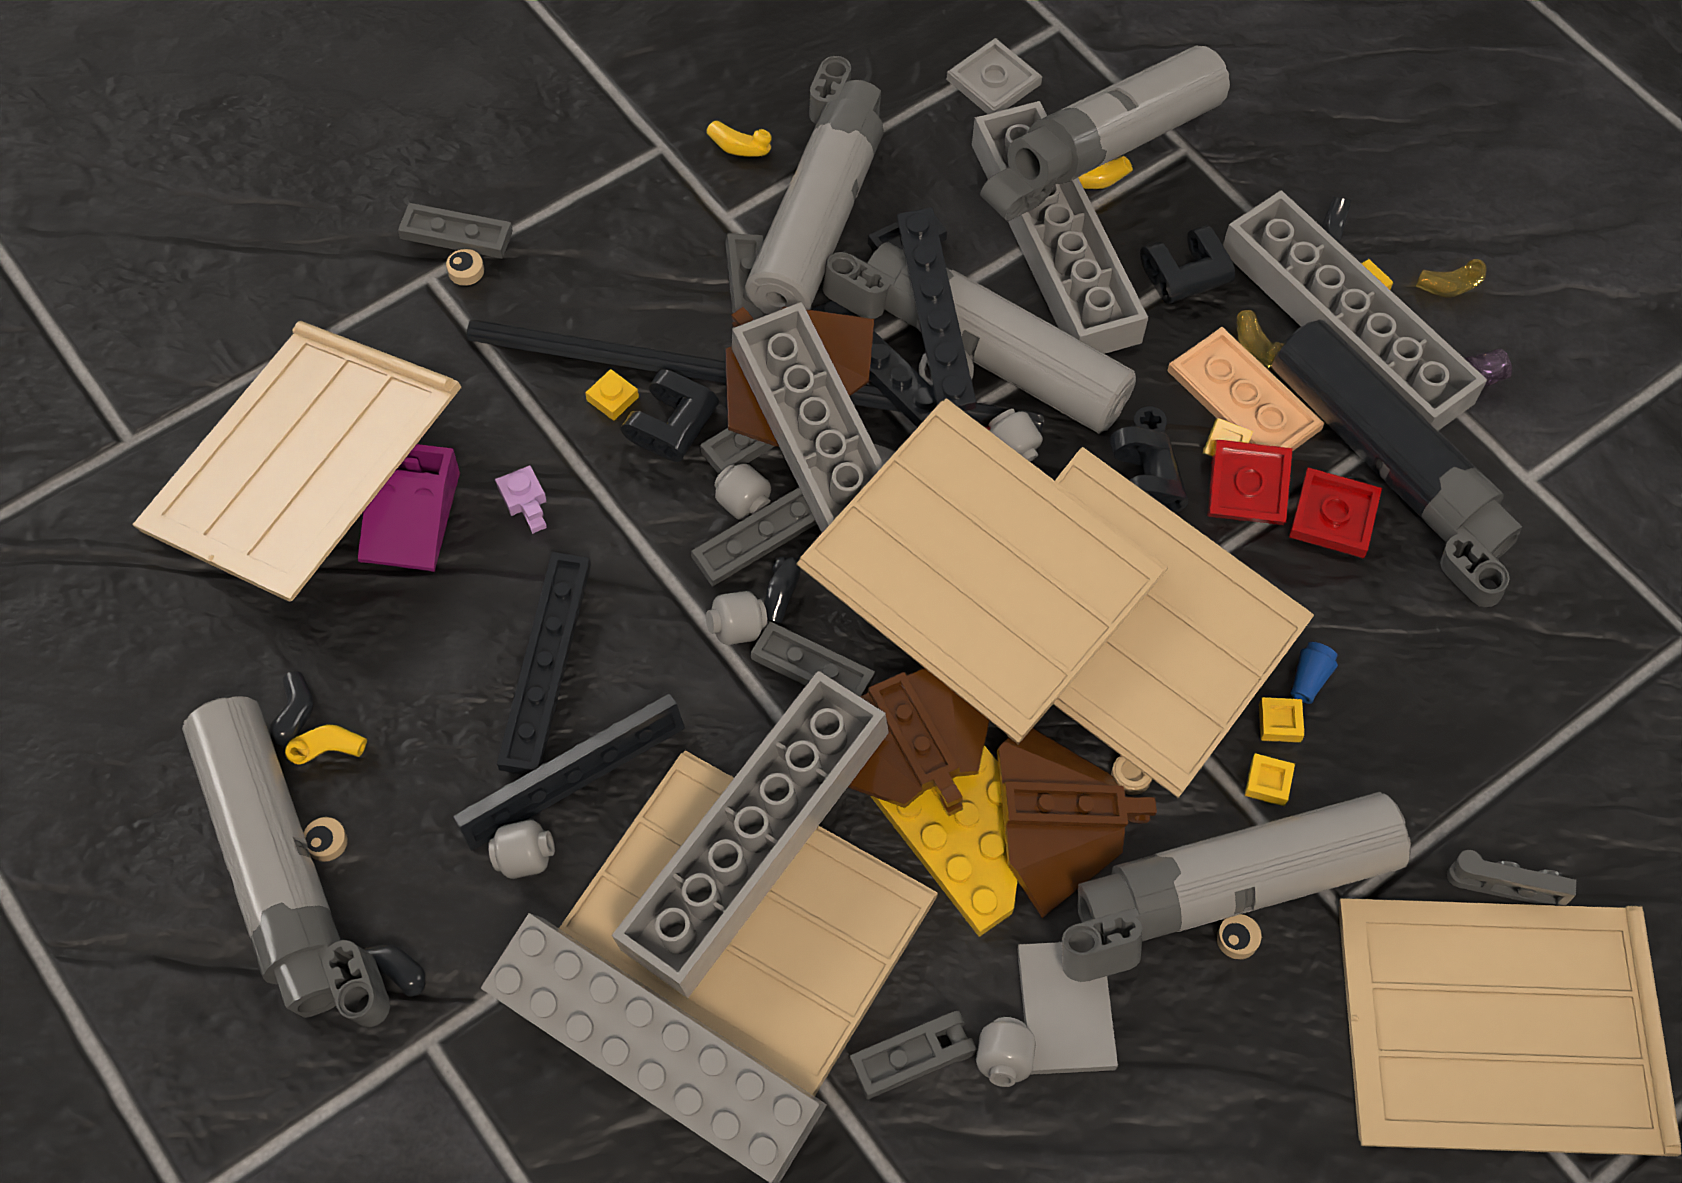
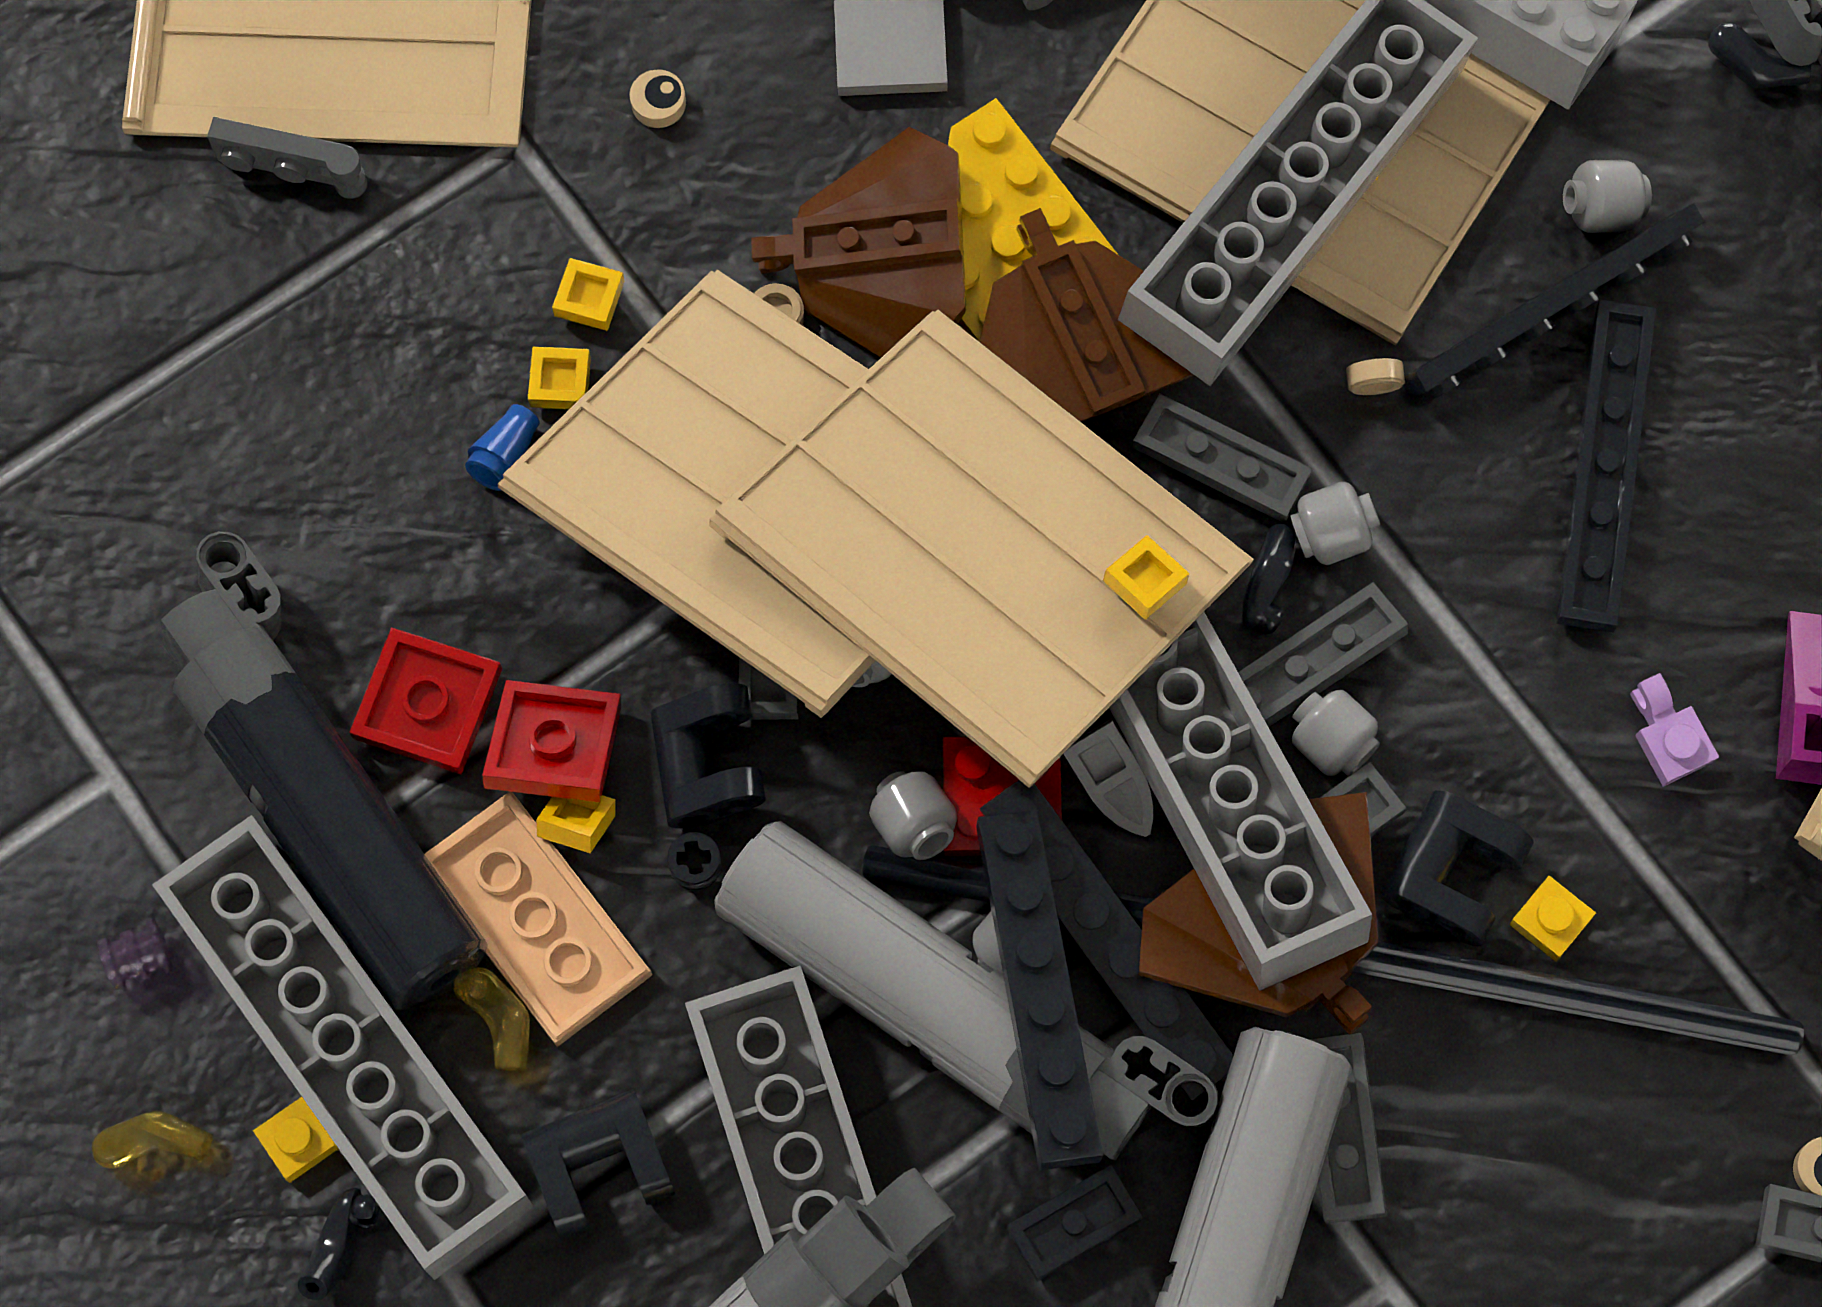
camera: 175 degrees left, 10 degrees up
(702, 719) = (1375, 376): none -> tan tile
(871, 526) = (1146, 577): none -> yellow plate
(1230, 878) = (657, 146): light grey piece -> none

